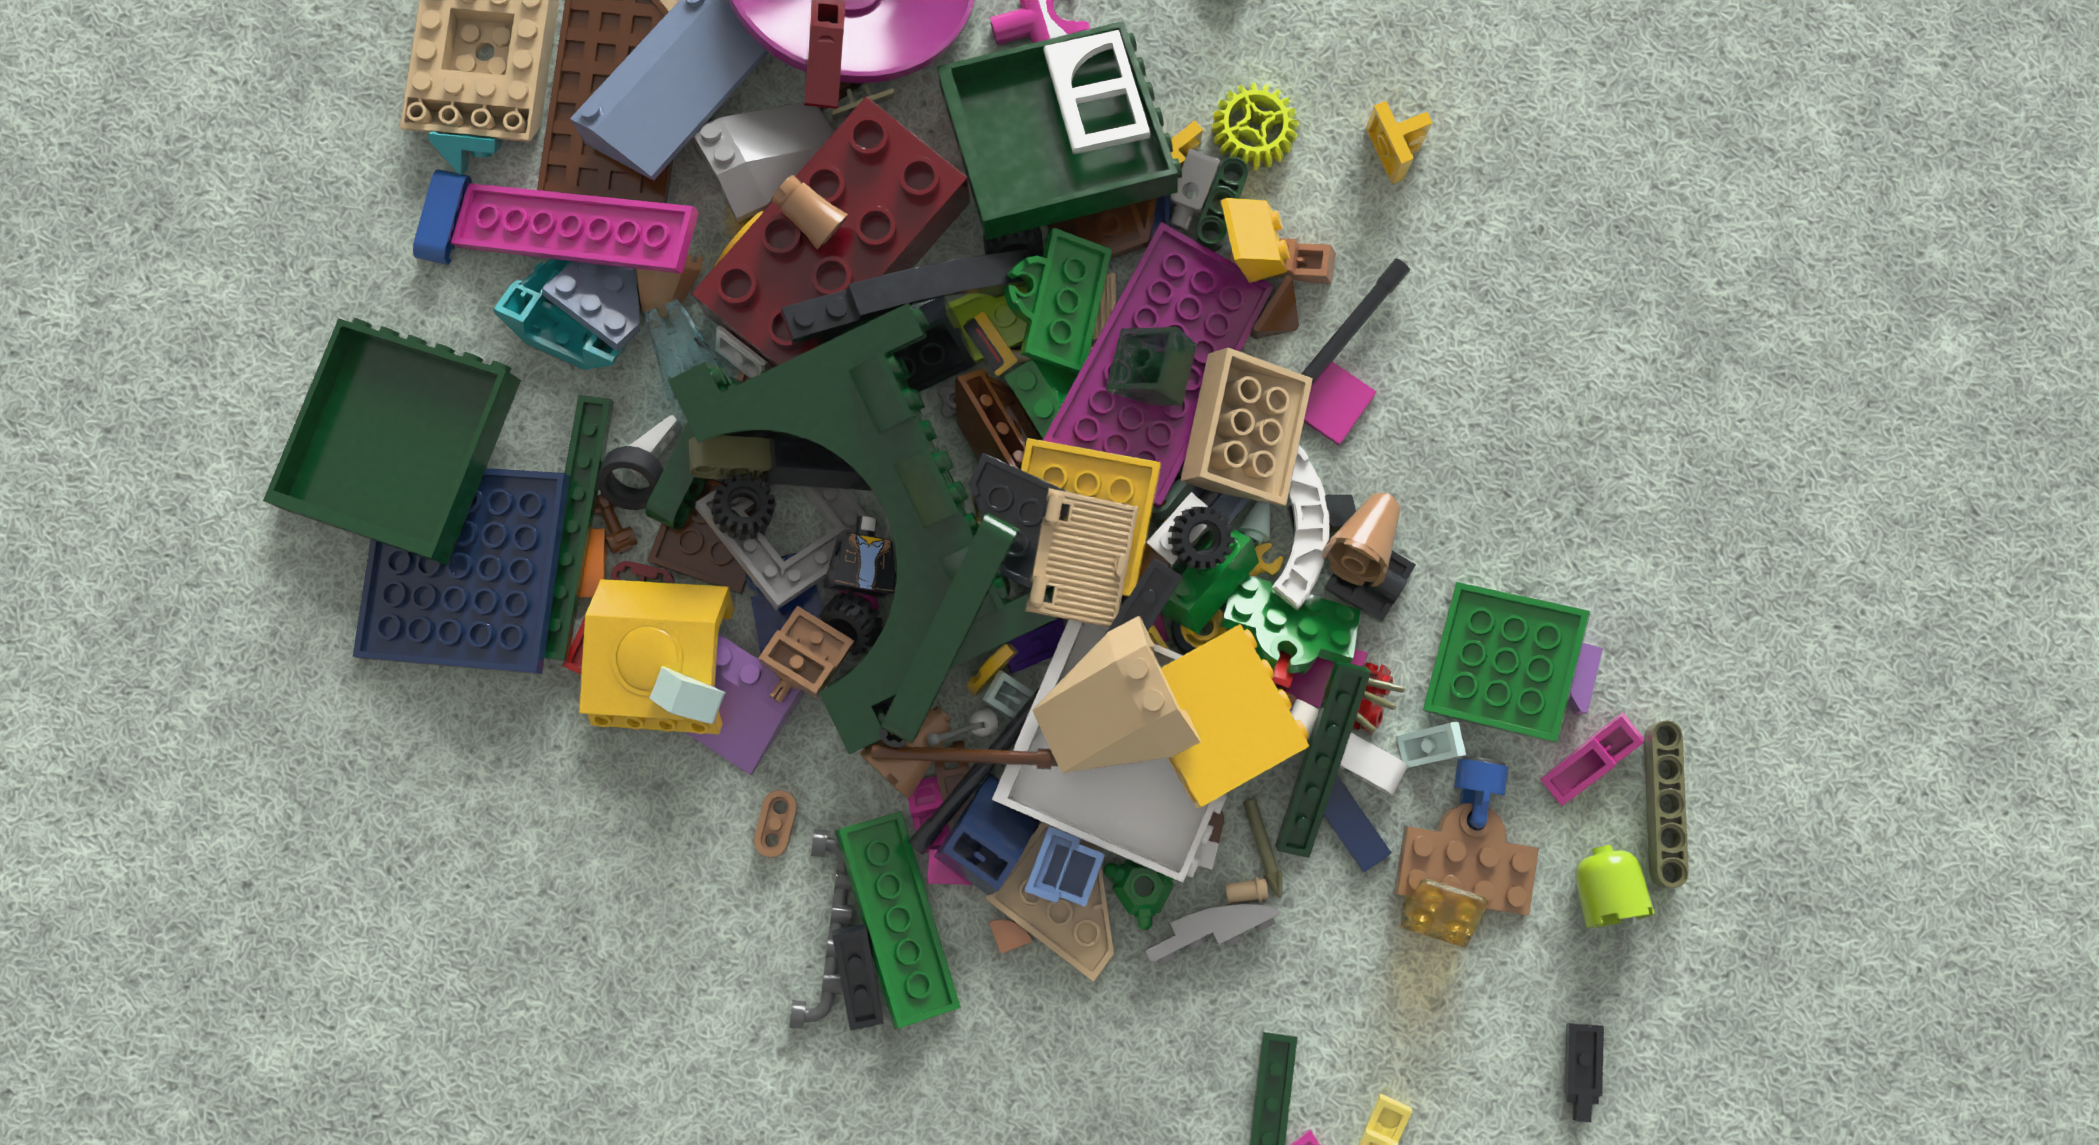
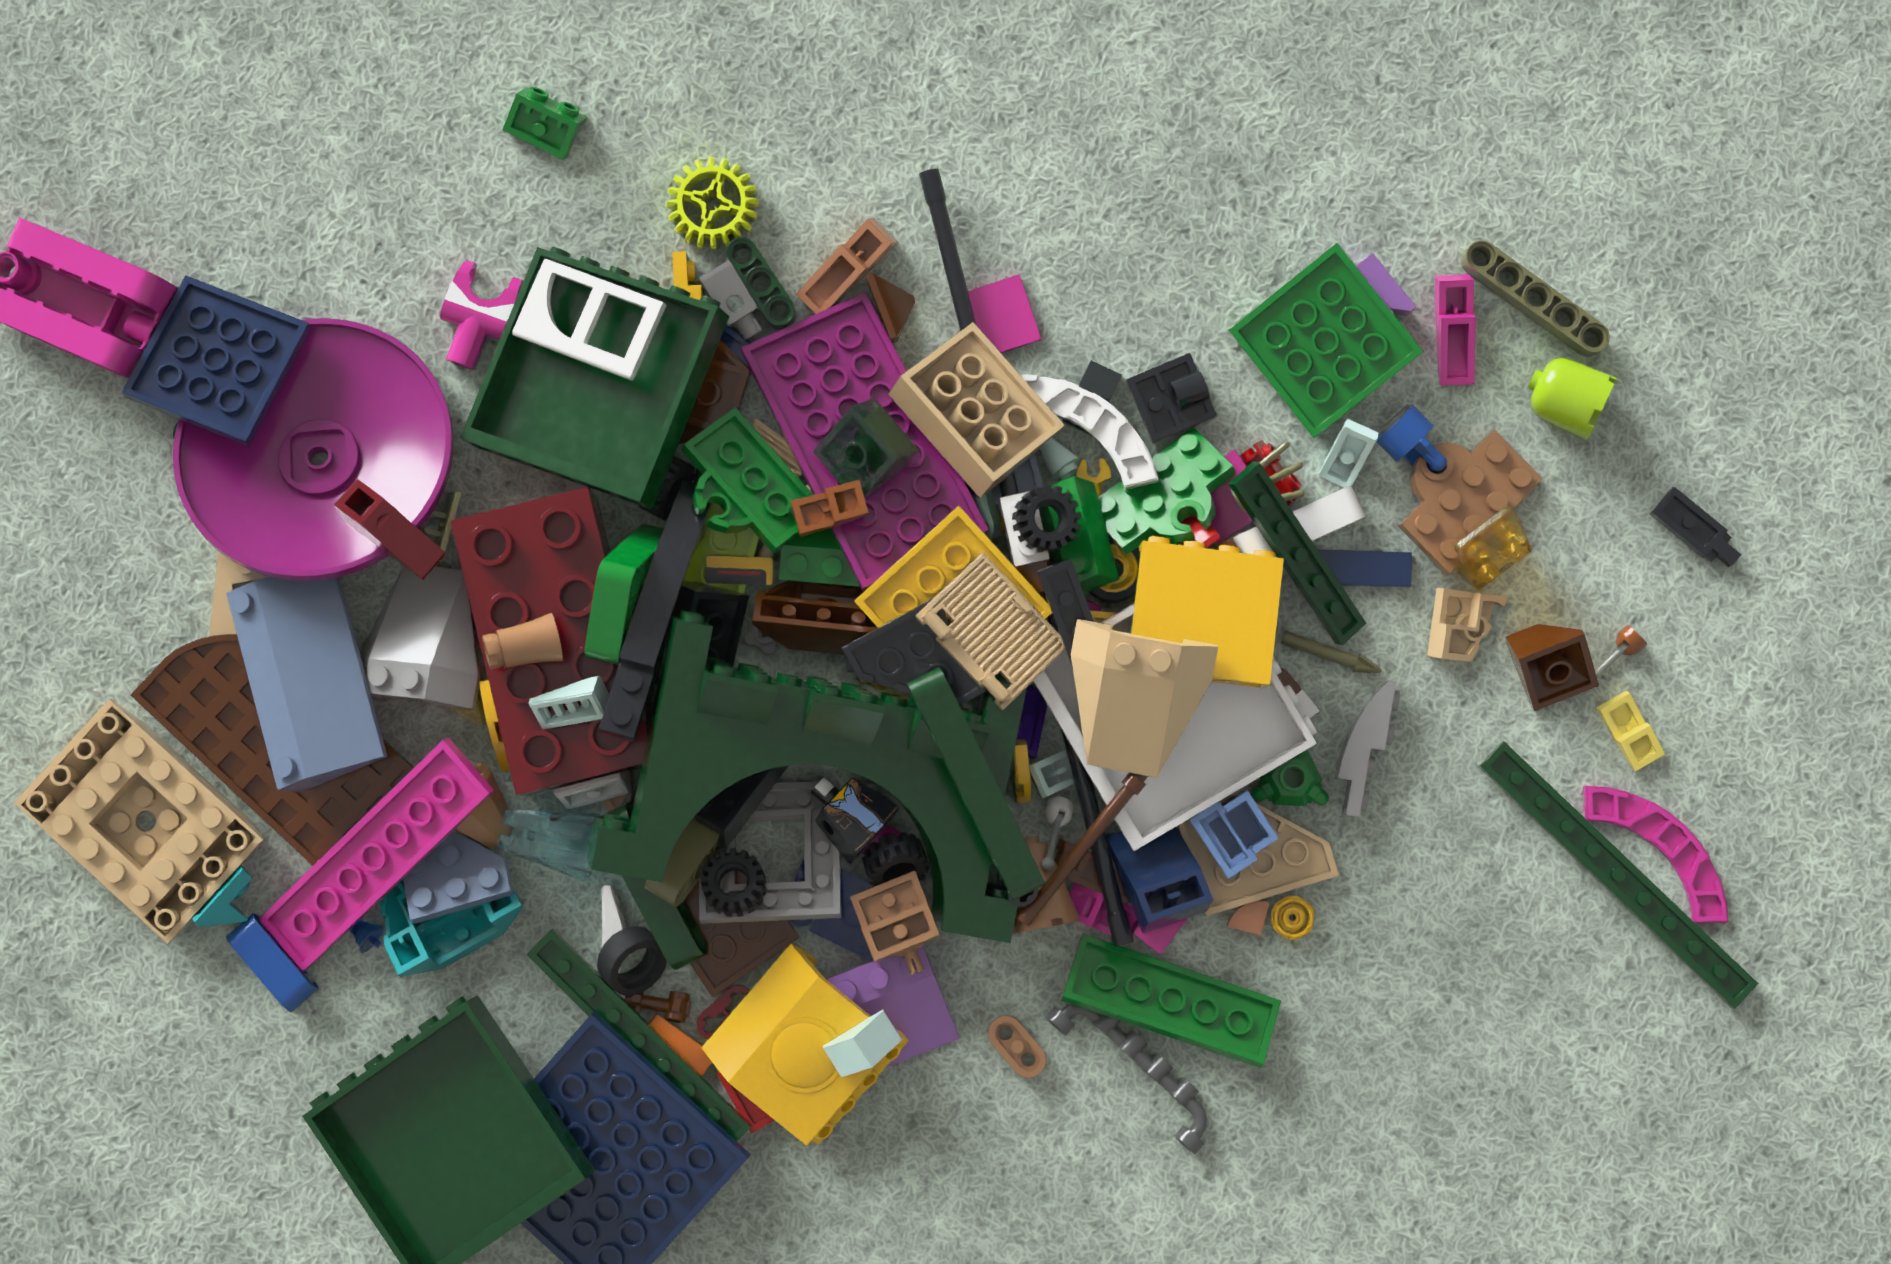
camera: 55 degrees left, 5 degrees up
(511, 270) = (367, 935): none -> clear blue piece
(807, 284) = (589, 692): none -> light aqua slope
(857, 977) = (1195, 1067): black plate -> none
(896, 247) = (615, 593): none -> green beam
(1033, 980) = (1303, 917): none -> yellow plate
(1086, 371) = (829, 509): none -> dark orange slope
(1247, 891) = (1356, 694): tan pin -> none
(1255, 238) = (817, 279): yellow slope -> none
(1355, 938) = (1459, 635): none -> tan slope
(1365, 542) = (1142, 381): medium nougat cone -> none
(1388, 1030) = (1552, 663): none -> reddish brown slope
(1395, 141) = (820, 97): yellow bracket -> none
(1450, 1081) = (1628, 643): none -> dark orange hinge

